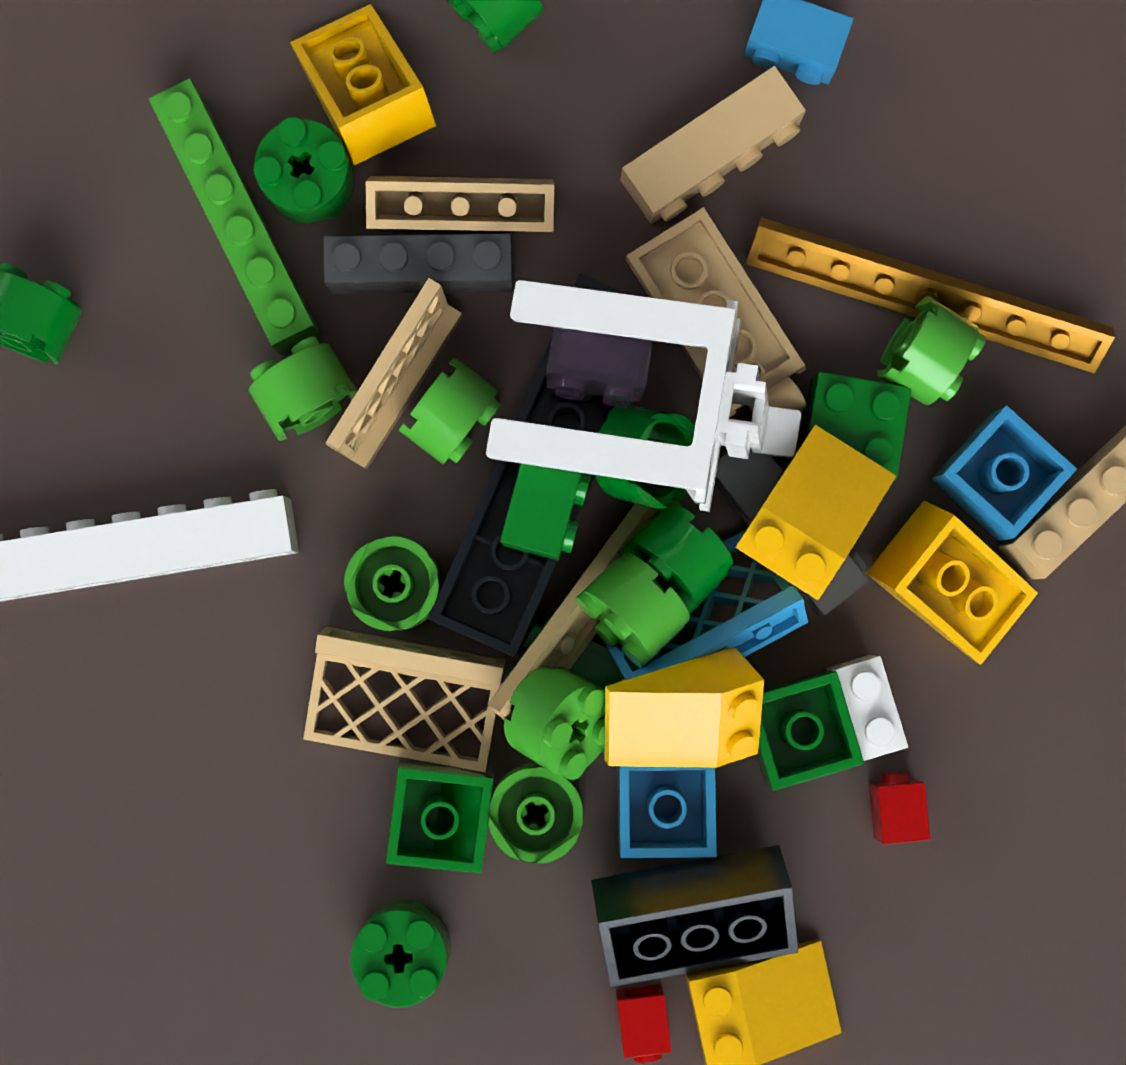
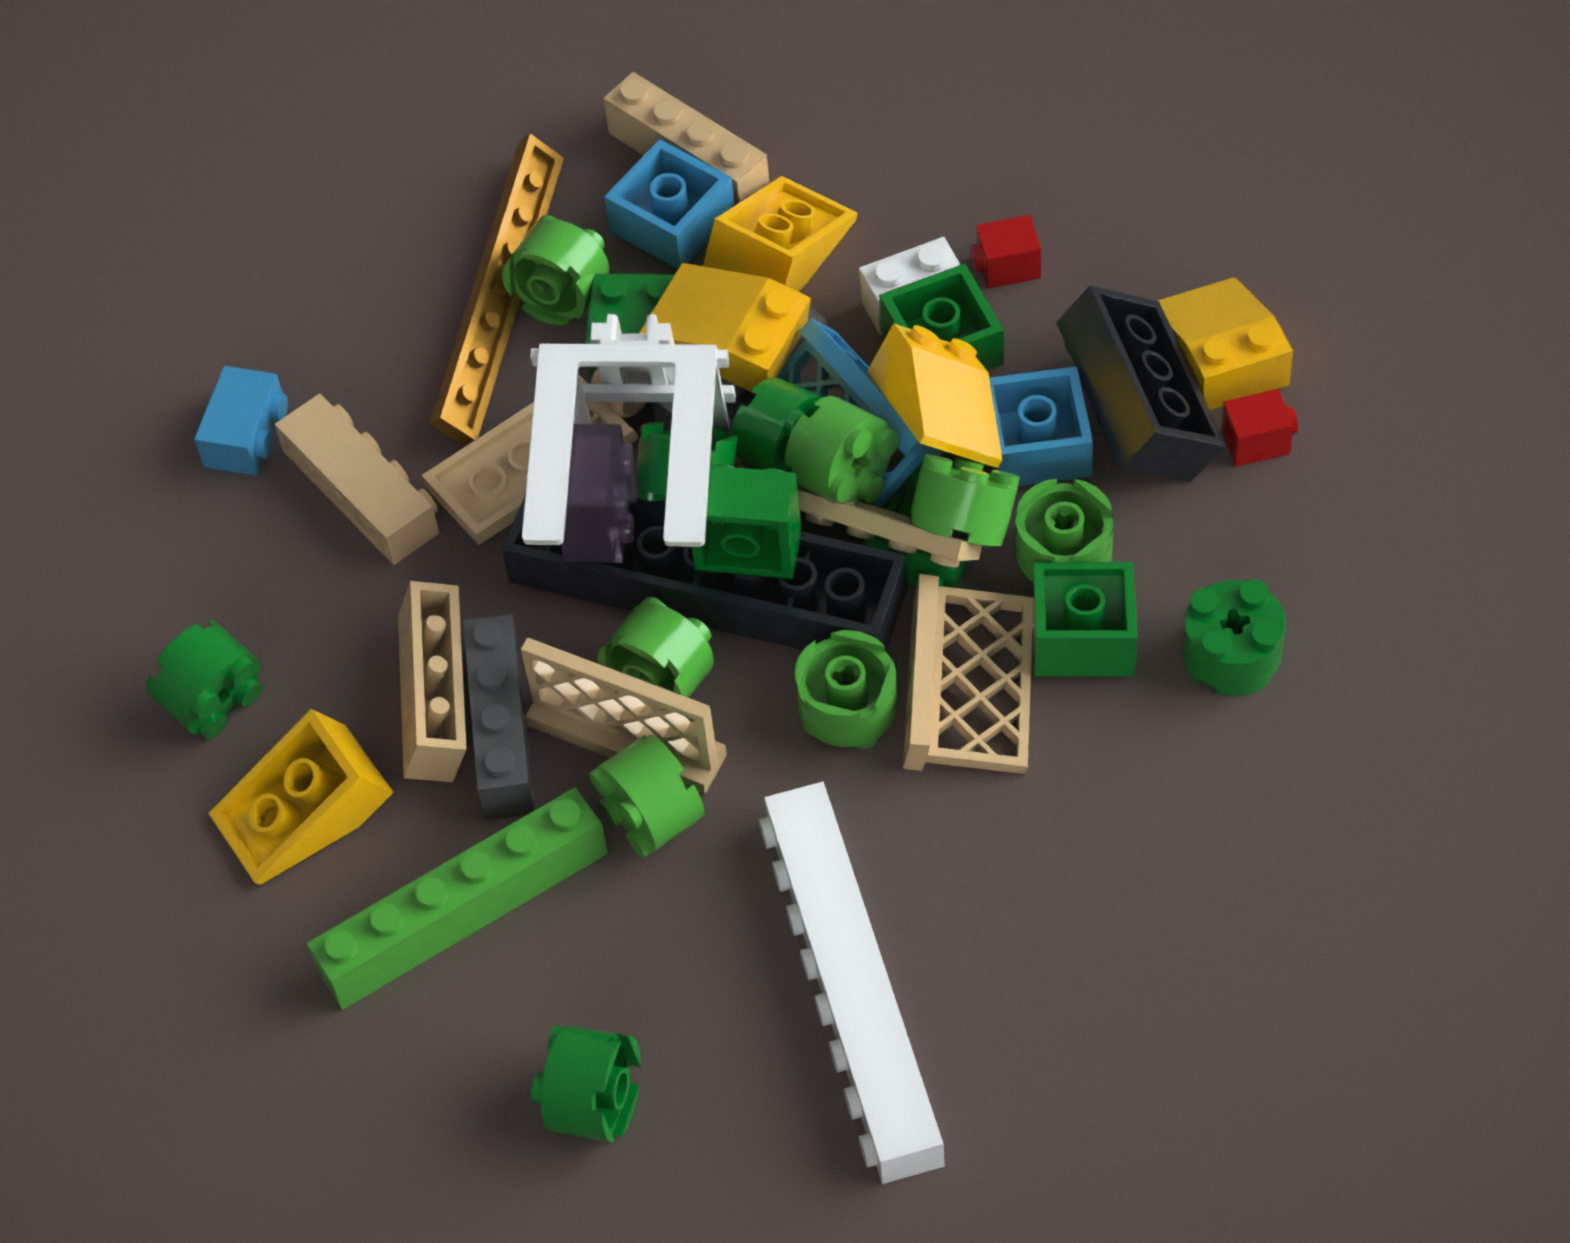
camera: 90 degrees left, 30 degrees down
(298, 146) = (401, 831): green brick -> none

